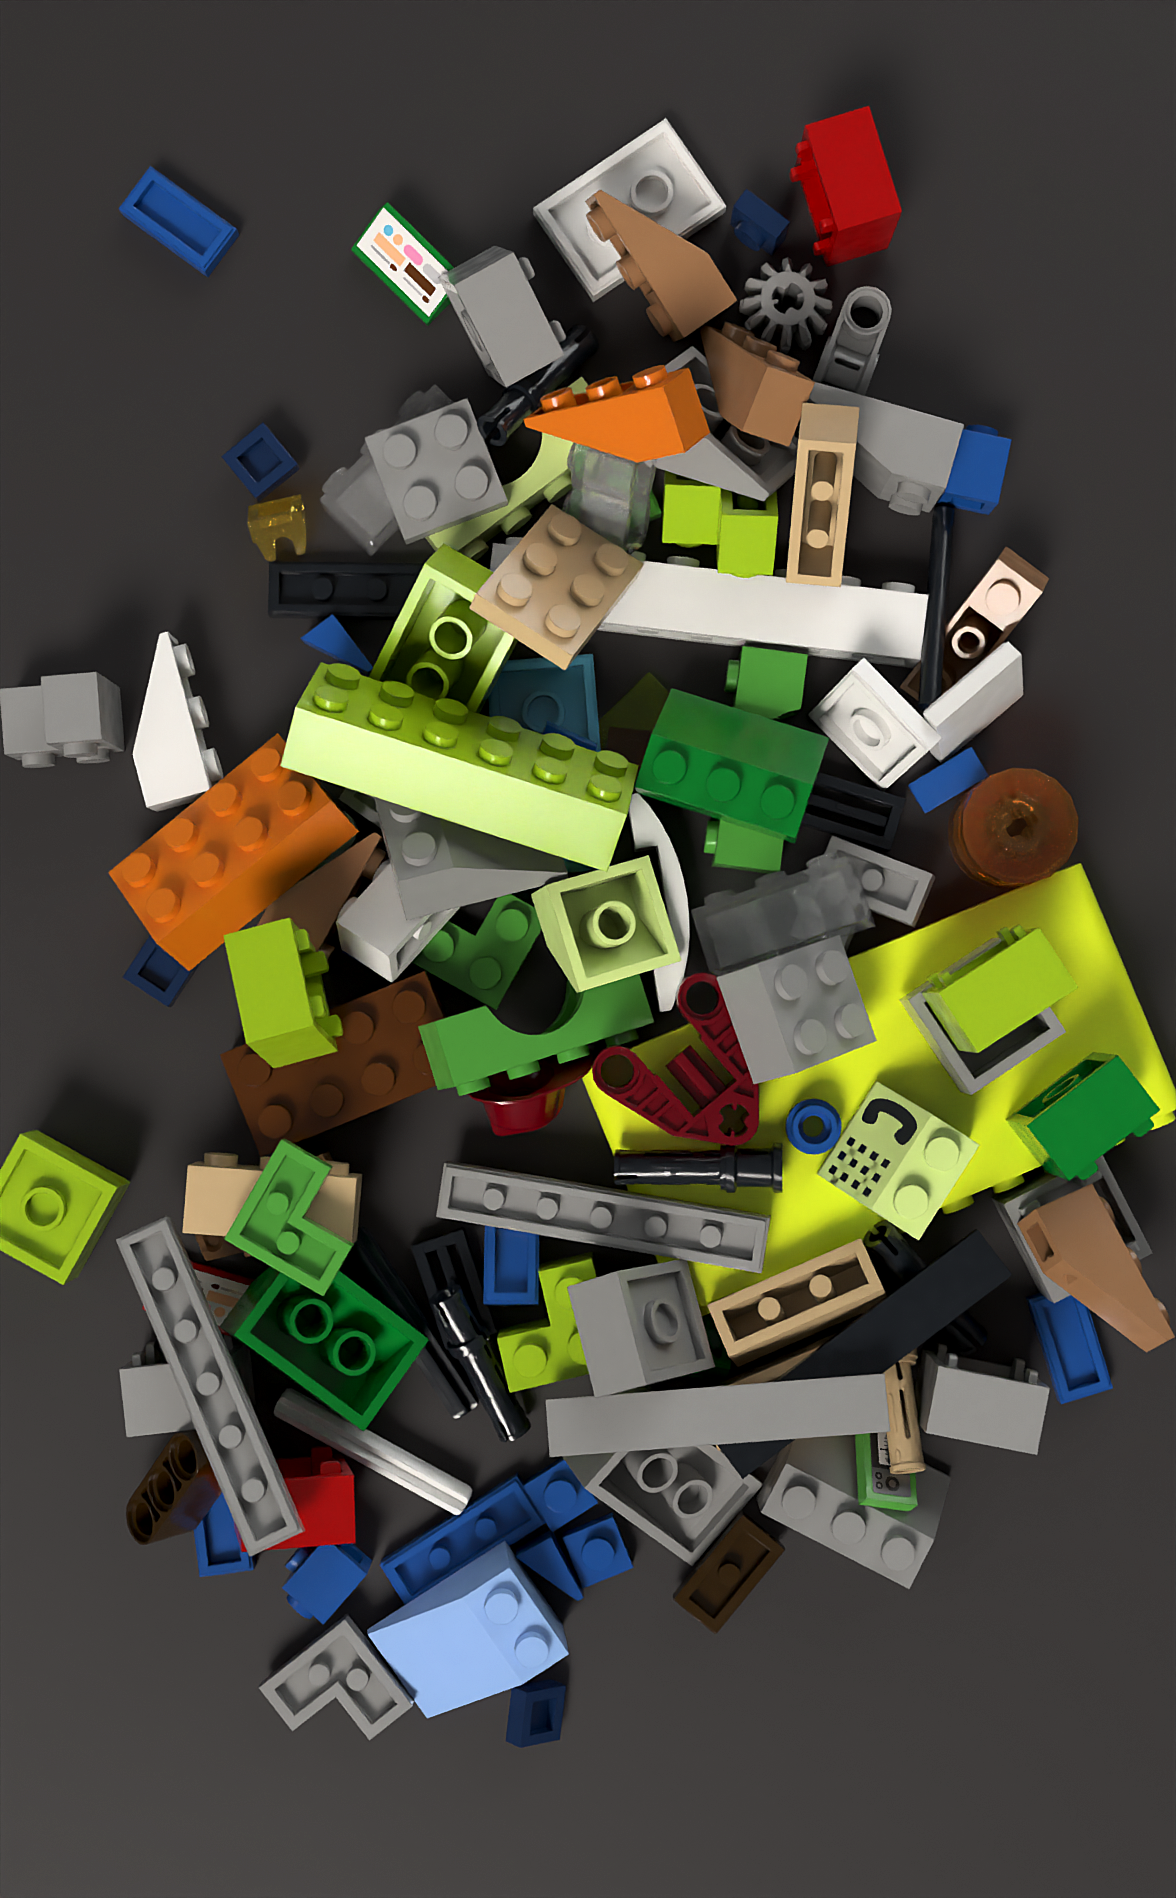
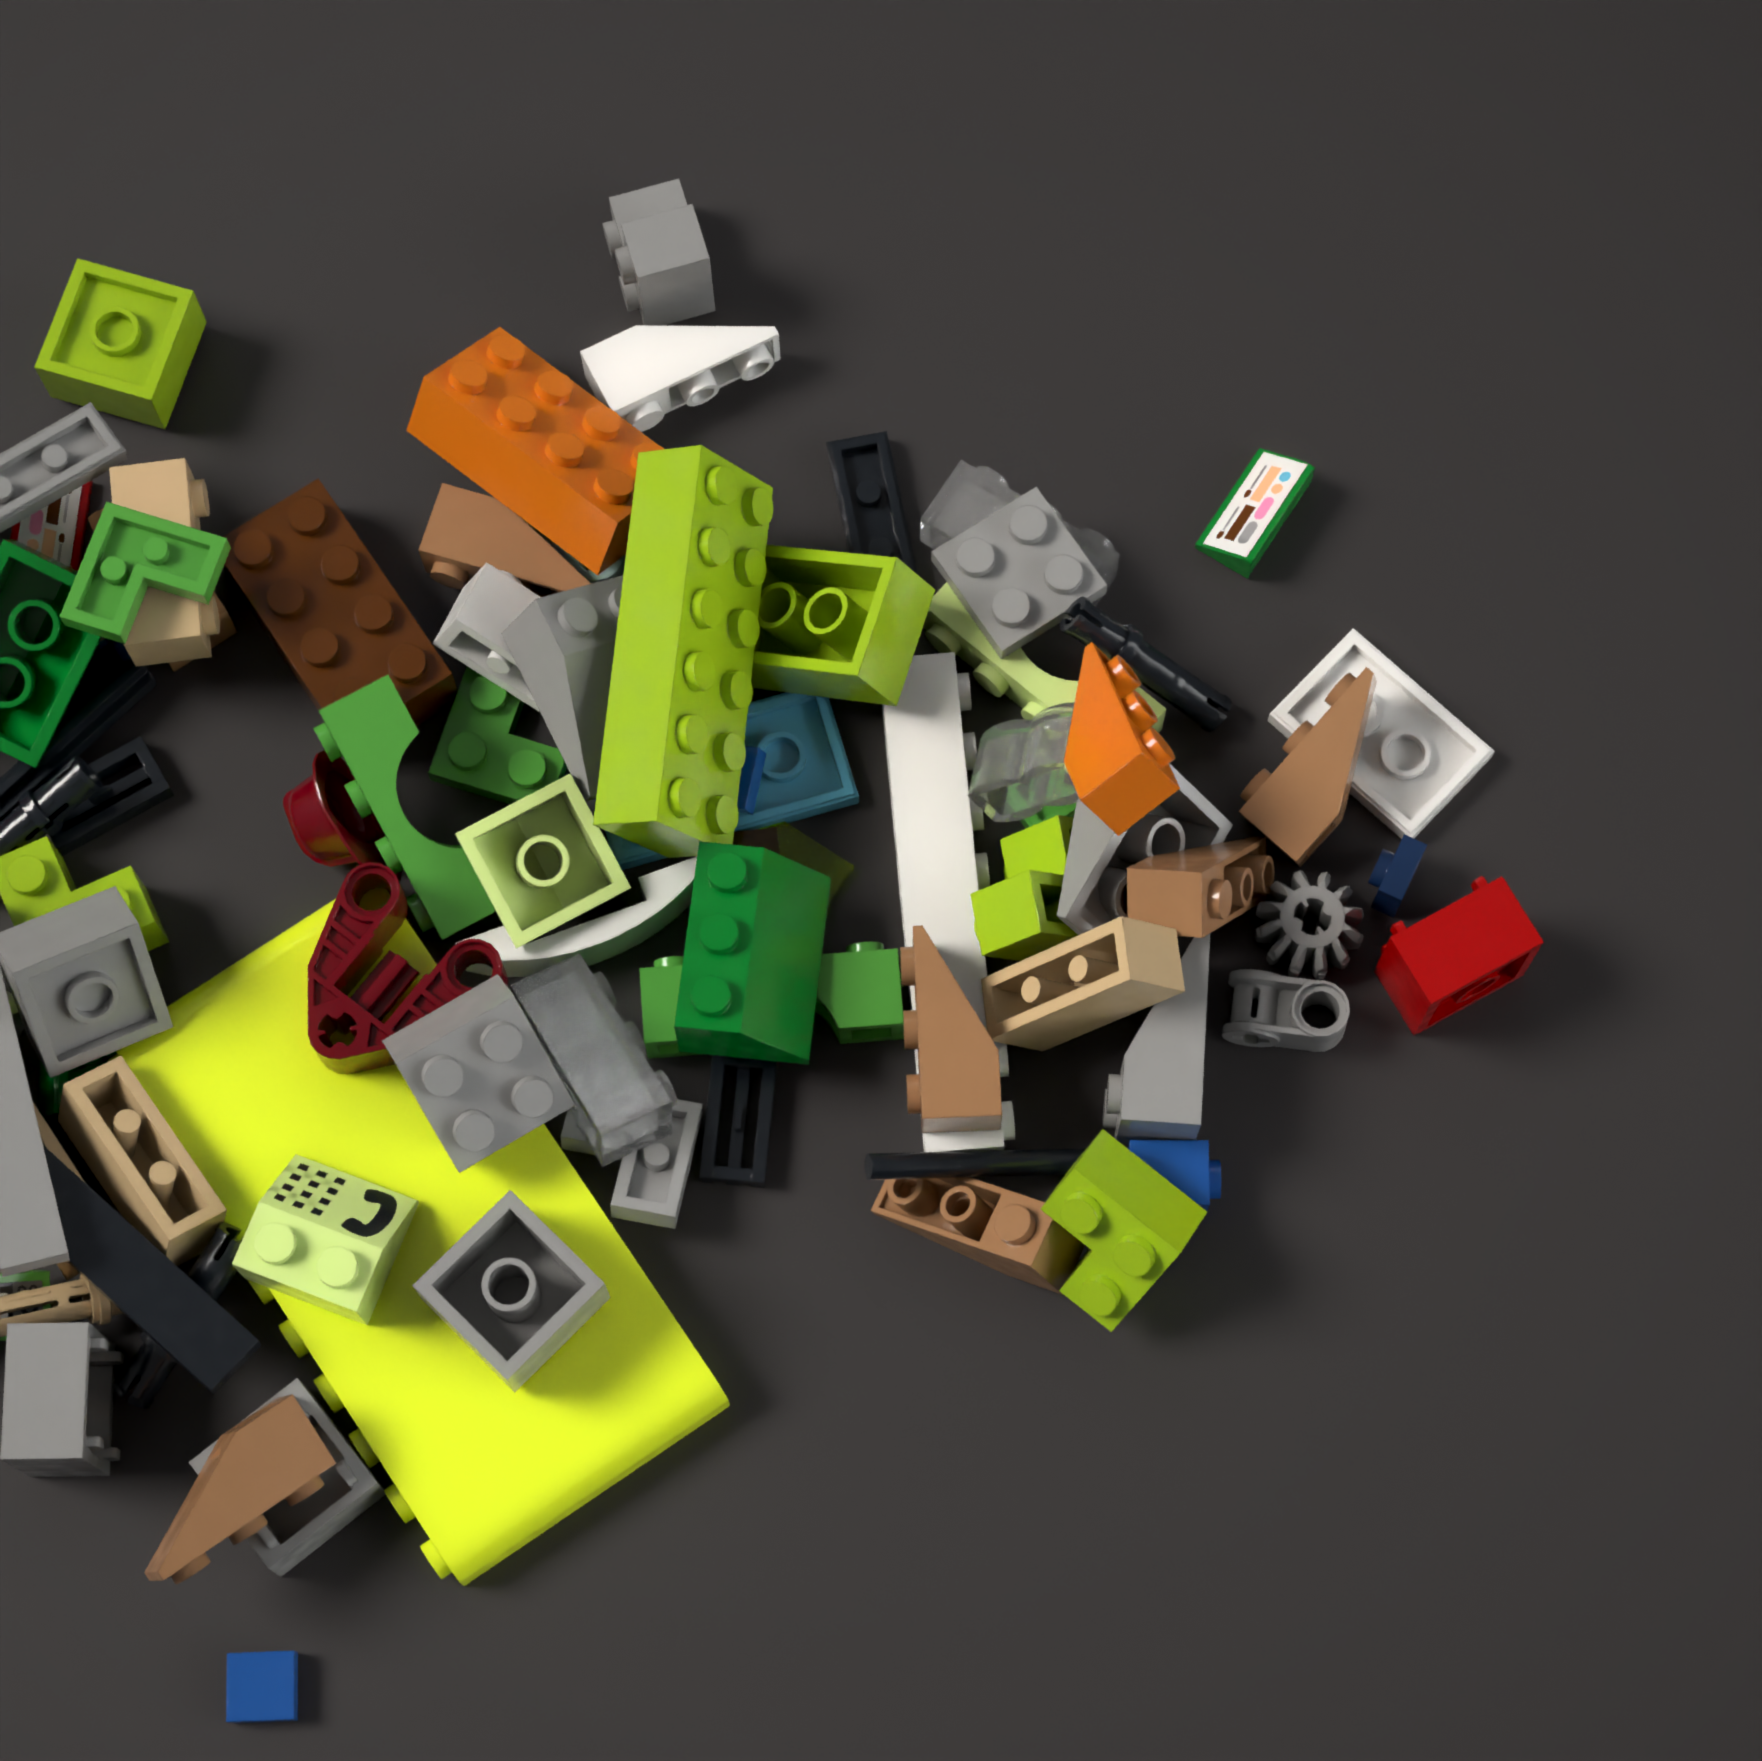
camera: 75 degrees right, 15 degrees down
(158, 973) = (393, 410): dark blue plate -> none
(179, 221) = (1243, 266): blue tile -> none
(260, 462) = (994, 399): dark blue plate -> none
(278, 519) = (934, 429): clear yellow tile -> none
(282, 993) = (391, 512): lime container -> none
(334, 641) = (813, 517): blue piece -> none
(503, 314) = (1210, 603): light grey container -> none
(511, 1267) = (157, 844): blue tile -> none
(556, 586) = (908, 712): tan plate -> none
(604, 1216) = (207, 931): light grey tile -> none
(725, 1167) = (283, 1043): black pin -> none
(828, 1136) = (345, 1117): blue plate -> none
(856, 616) = (956, 1056): none -> medium nougat slope
(874, 725) = (836, 1115): white tile -> none
(948, 780) = (798, 1230): blue piece -> none
(975, 701) = (887, 1224): white tile -> none
(985, 811) = (746, 1340): clear orange wheel -> none
(999, 989) = (532, 1263): lime container -> none
(1023, 510) = (1127, 1220): none -> lime brick
(1069, 1347) = (136, 1518): blue tile -> none
(1084, 1116) = (412, 1429): green container -> none

